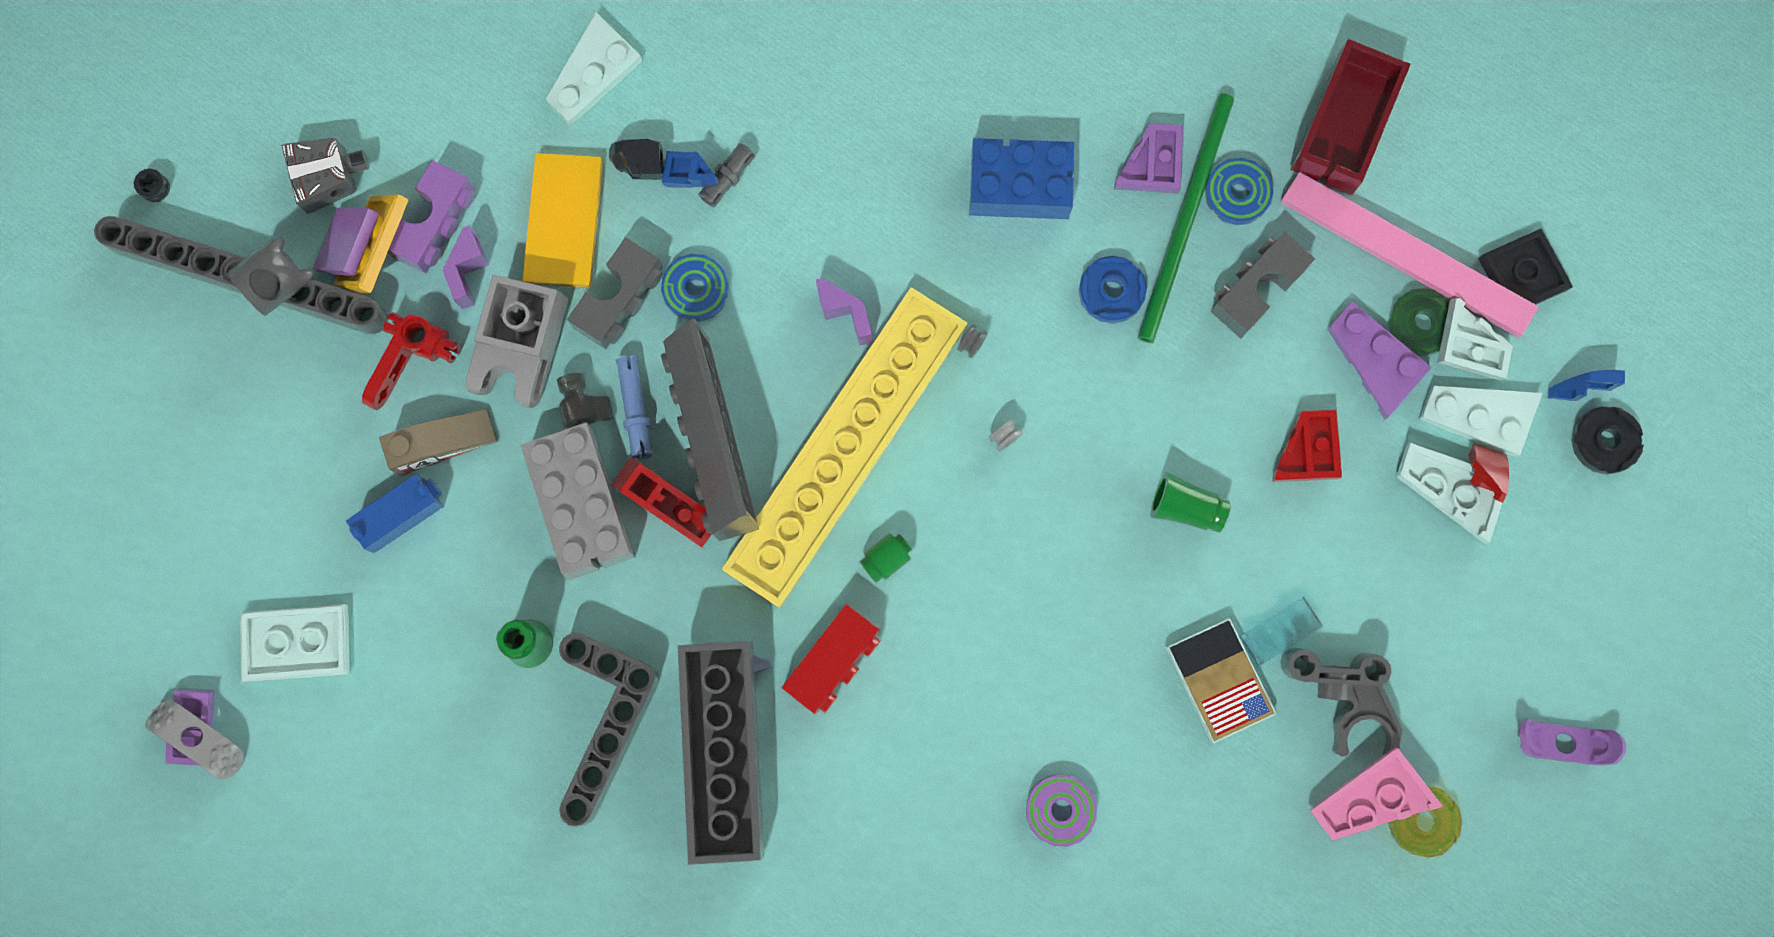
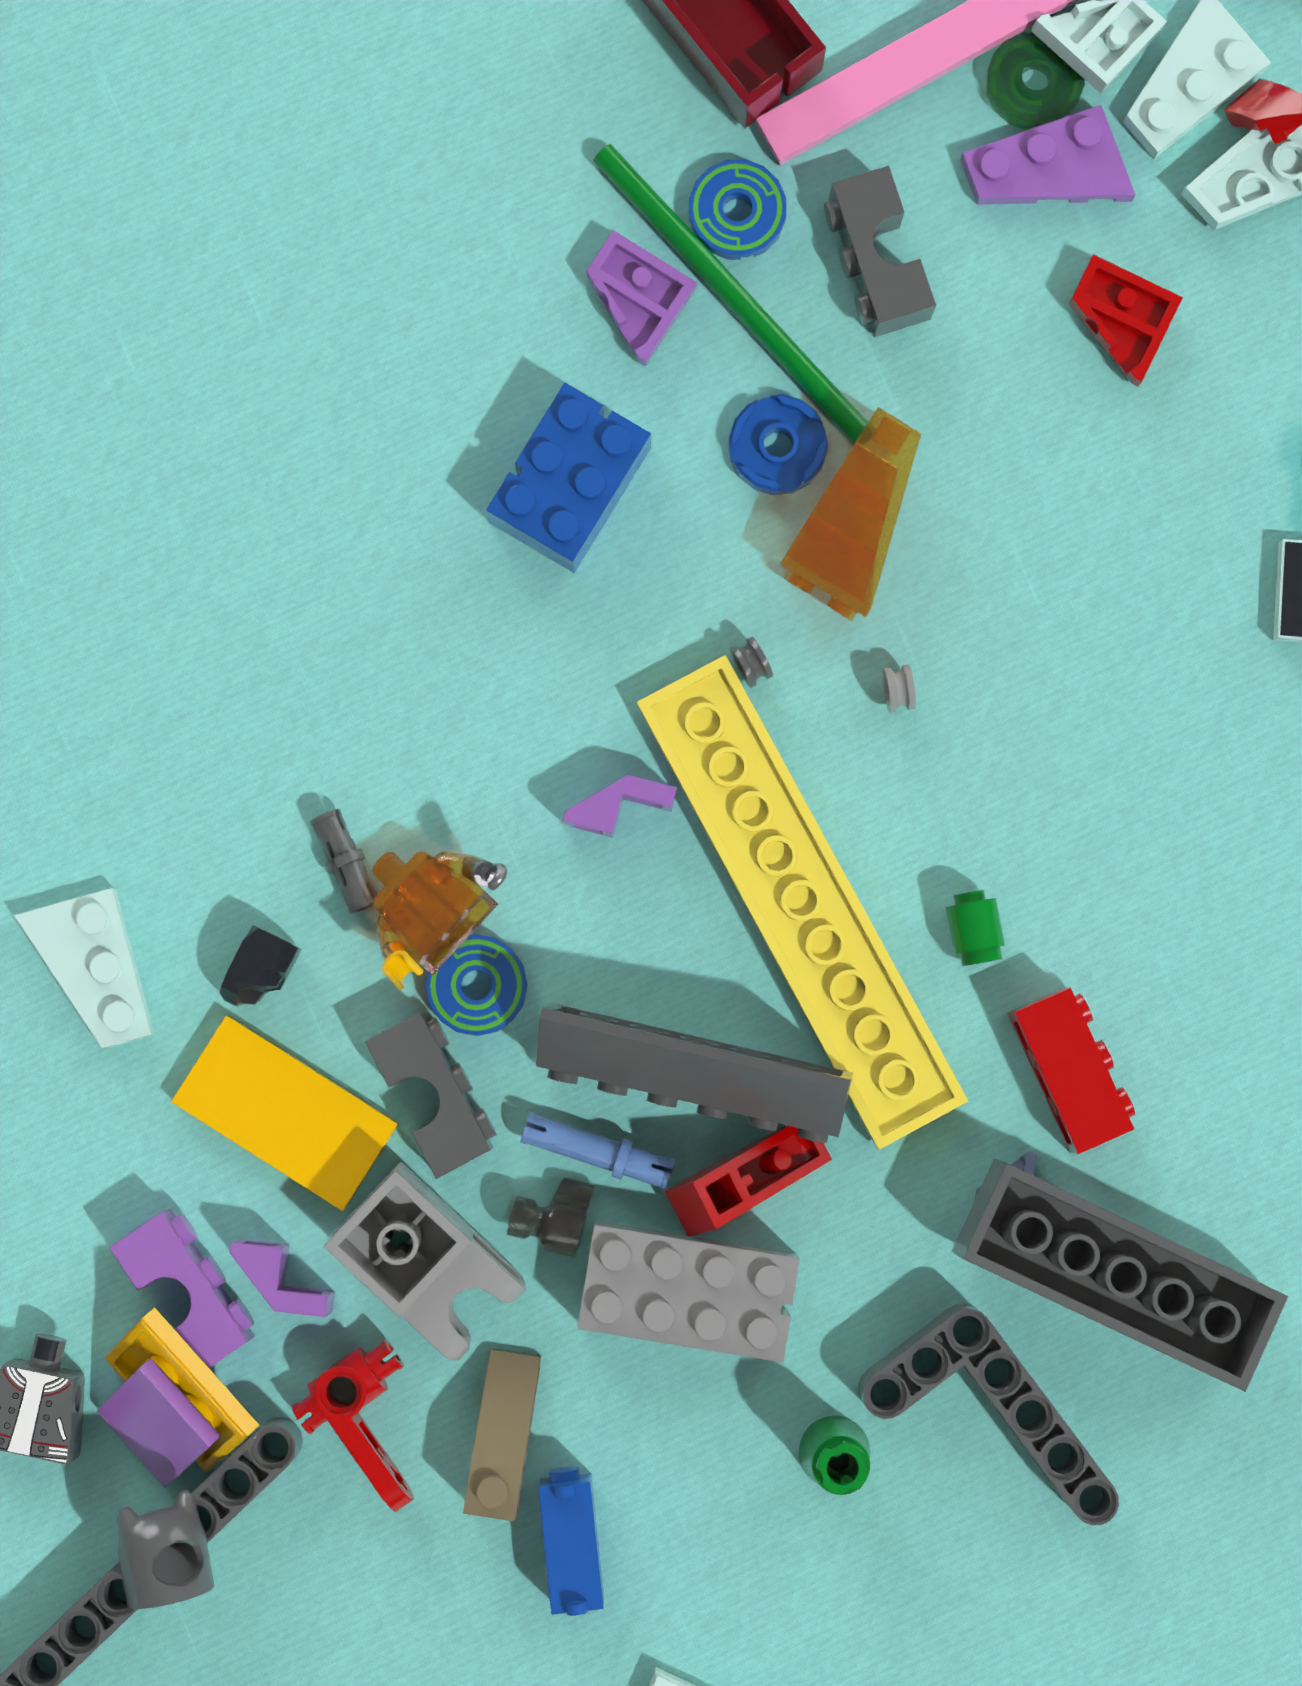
camera: 65 degrees left, 5 degrees up
(687, 171) = (311, 909): blue slope -> none
(721, 233) = (430, 908): none -> clear orange torso
(1091, 354) = (854, 521): none -> clear orange slope
(1189, 504) = (1114, 508): green plant -> none

